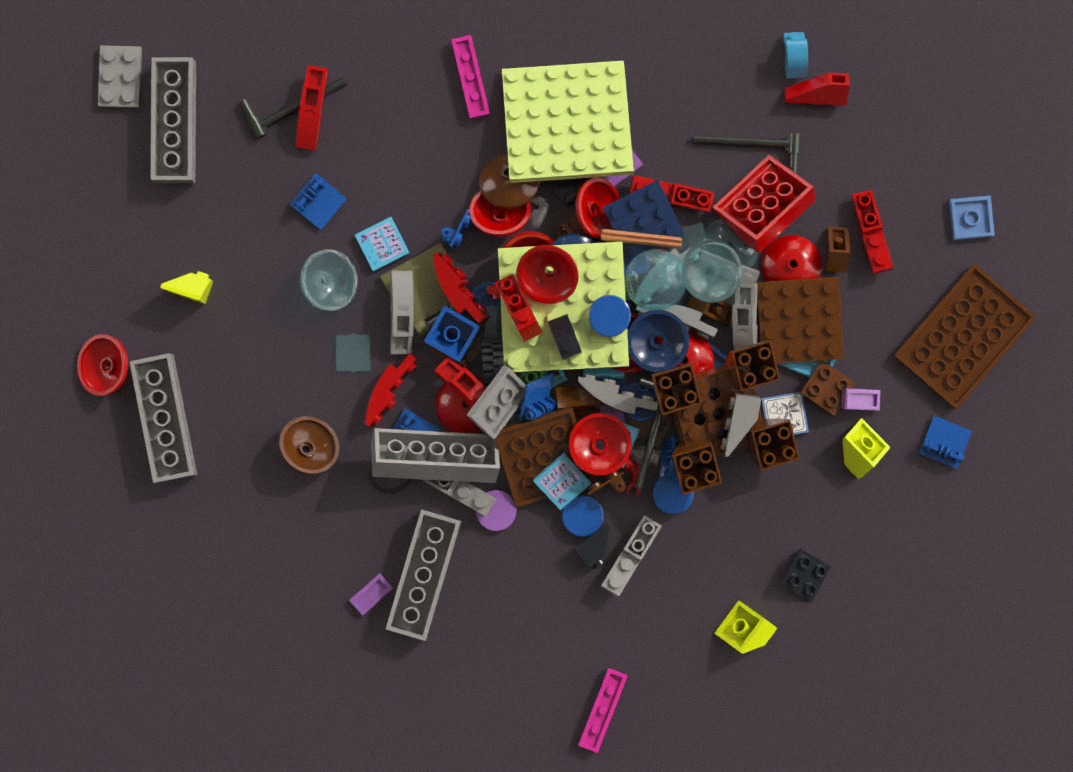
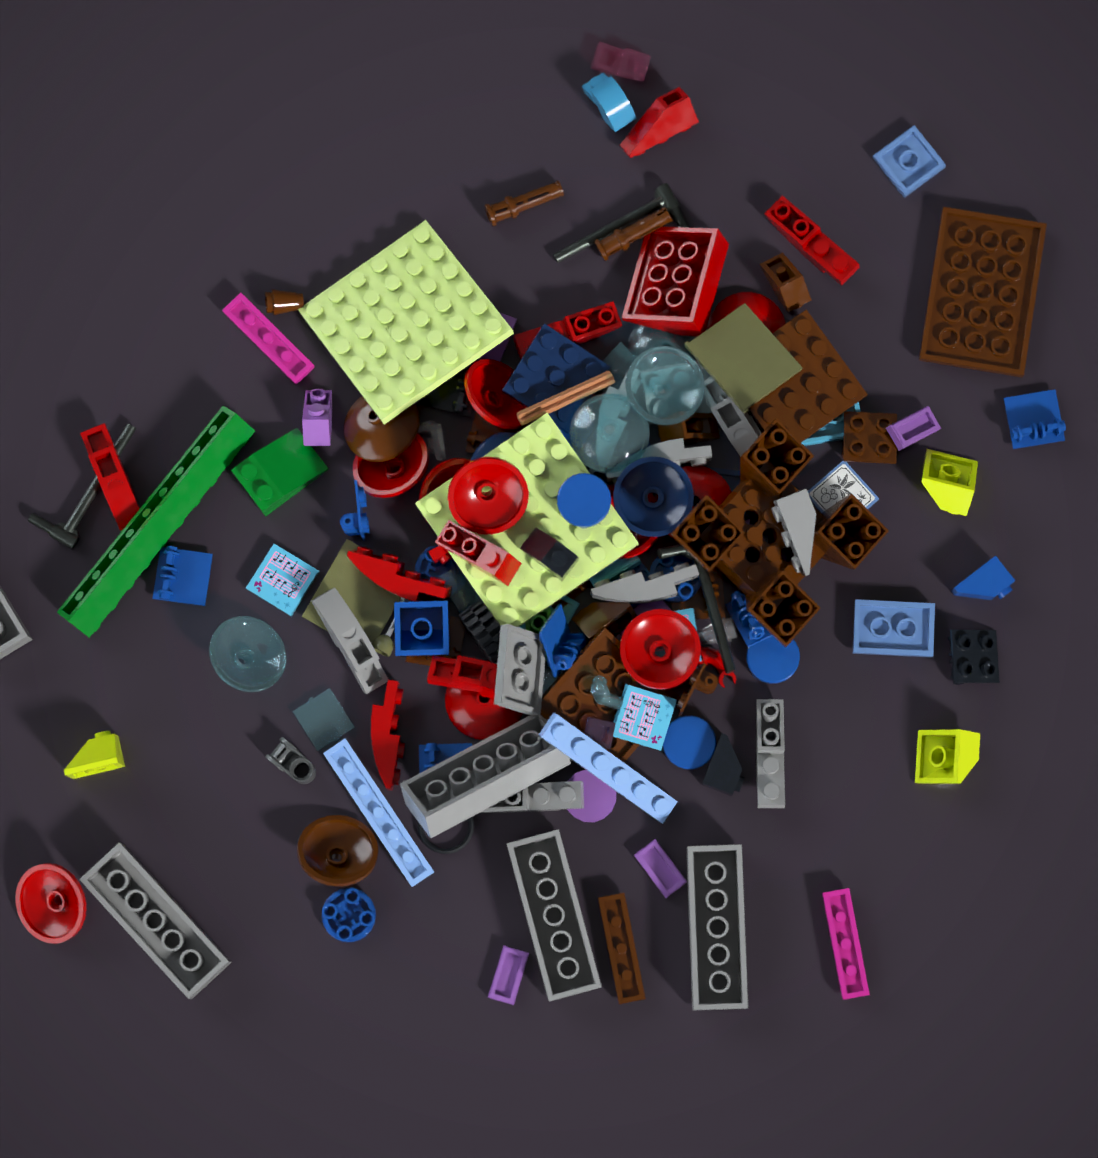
camera: 30 degrees left, 5 degrees down
(291, 491) = (348, 915): none -> blue tile
(314, 367) = (288, 759): none -> dark grey piece
(322, 155) = (156, 521): none -> green brick
(351, 436) = (378, 812): none -> light blue plate
(424, 170) = (279, 471): none -> green slope
(455, 622) = (621, 948): none -> reddish brown plate
(470, 150) = (317, 417): none -> medium lavender slope
(495, 58) = (283, 301): none -> reddish brown cone
(512, 586) = (660, 868): none -> medium lavender tile
(517, 500) = (607, 768): none -> light blue plate
(524, 648) = (717, 927): none -> light grey brick
(526, 474) = (600, 731): none -> clear purple plate
(543, 450) = (602, 695): none -> clear light blue arm
(721, 92) = (553, 191): none -> reddish brown pin
(747, 153) = (622, 238): none -> reddish brown pin
(764, 523) = (893, 628): none -> medium blue plate
(776, 284) = (743, 357): none -> olive piece
(820, 32) = (620, 62): none -> clear pink slope
(844, 531) = (986, 582): none -> blue slope

